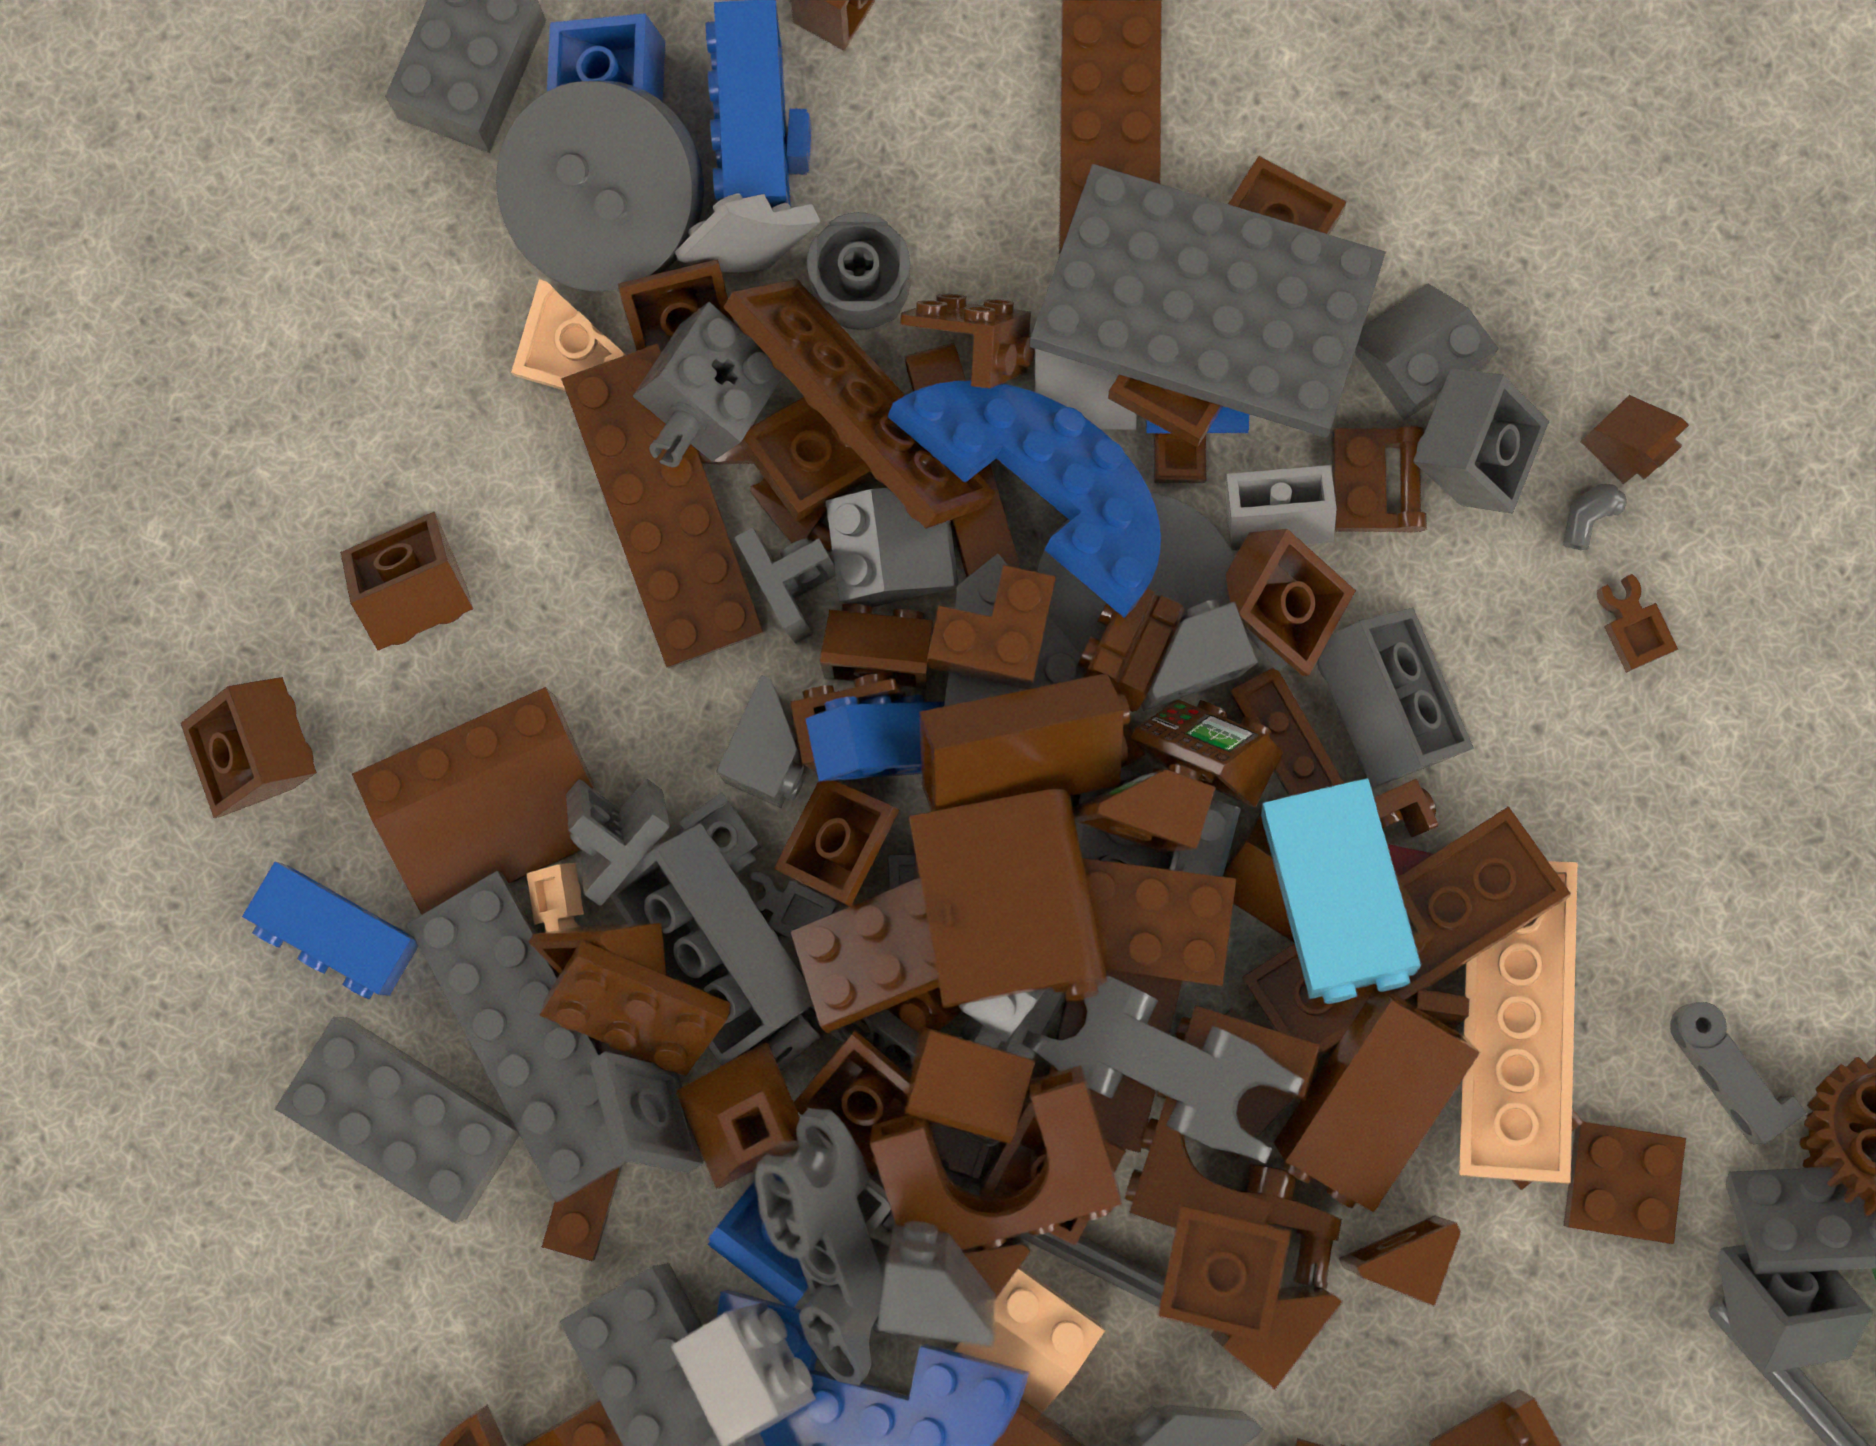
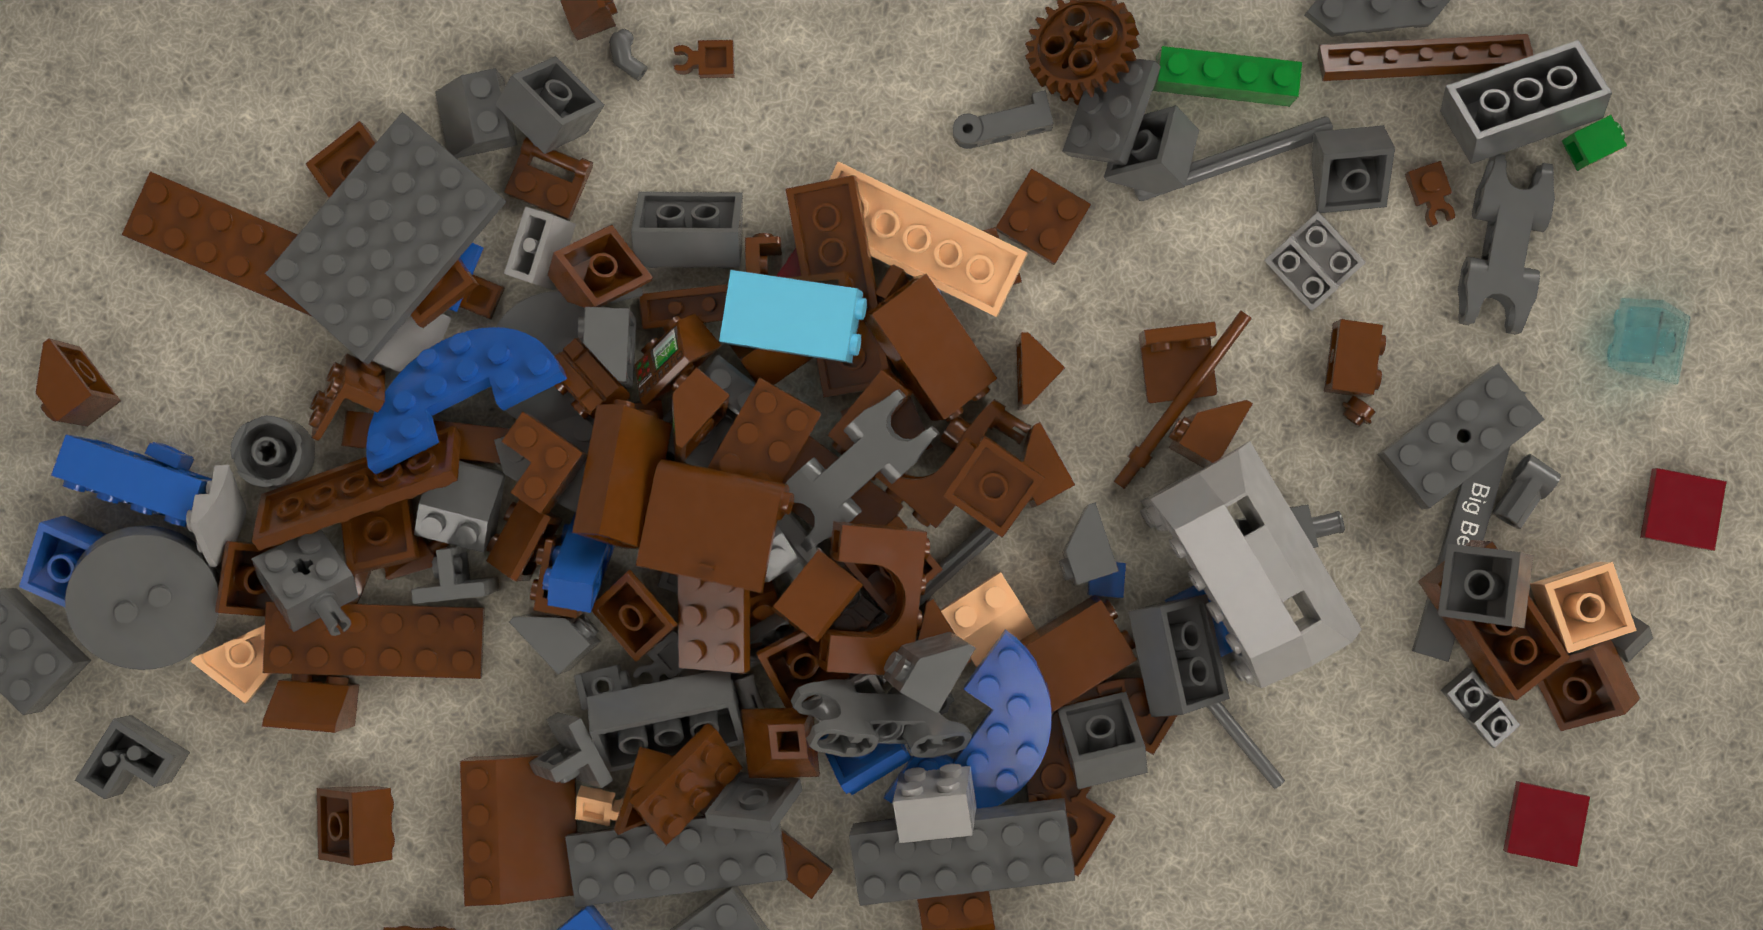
camera: 65 degrees left, 5 degrees up
(389, 247) = (130, 750): none -> dark grey brick
(545, 461) = (313, 704): none -> reddish brown slope

